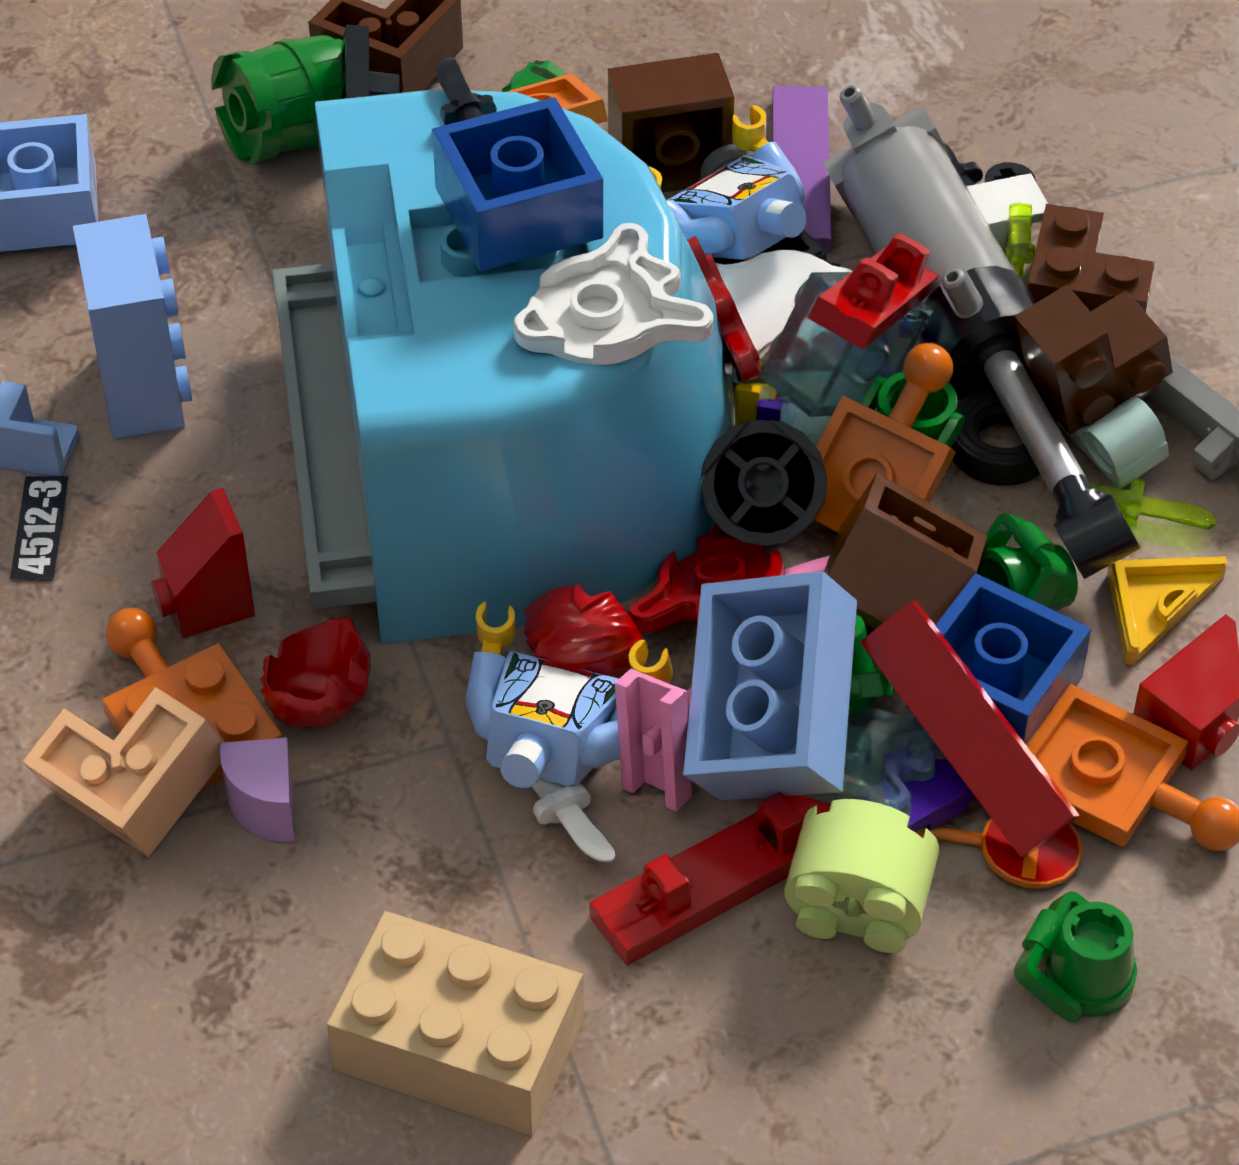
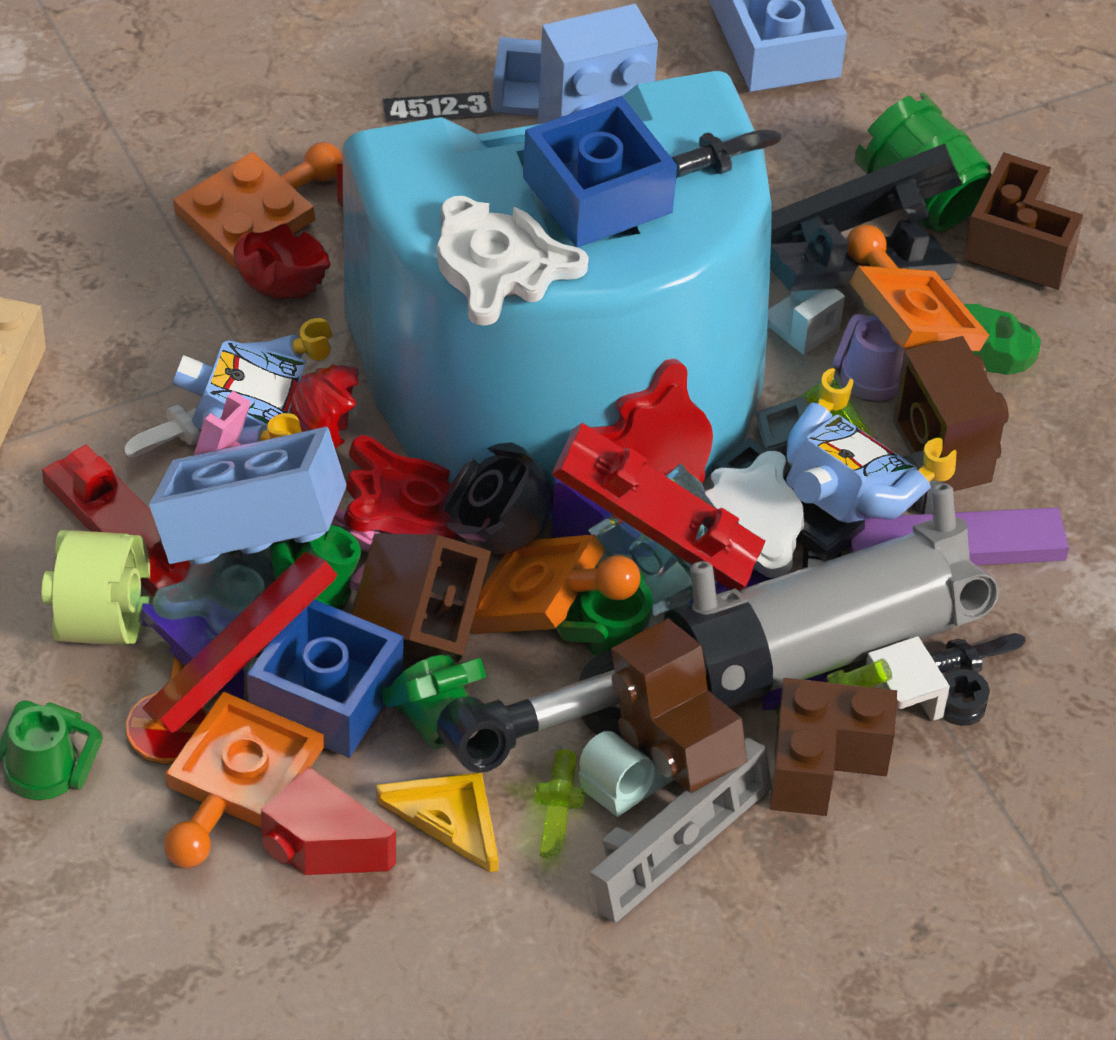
camera: 80 degrees right, 0 degrees up
(139, 778) = (166, 165): light nougat panel -> none
(260, 787) = (176, 248): lavender brick -> none

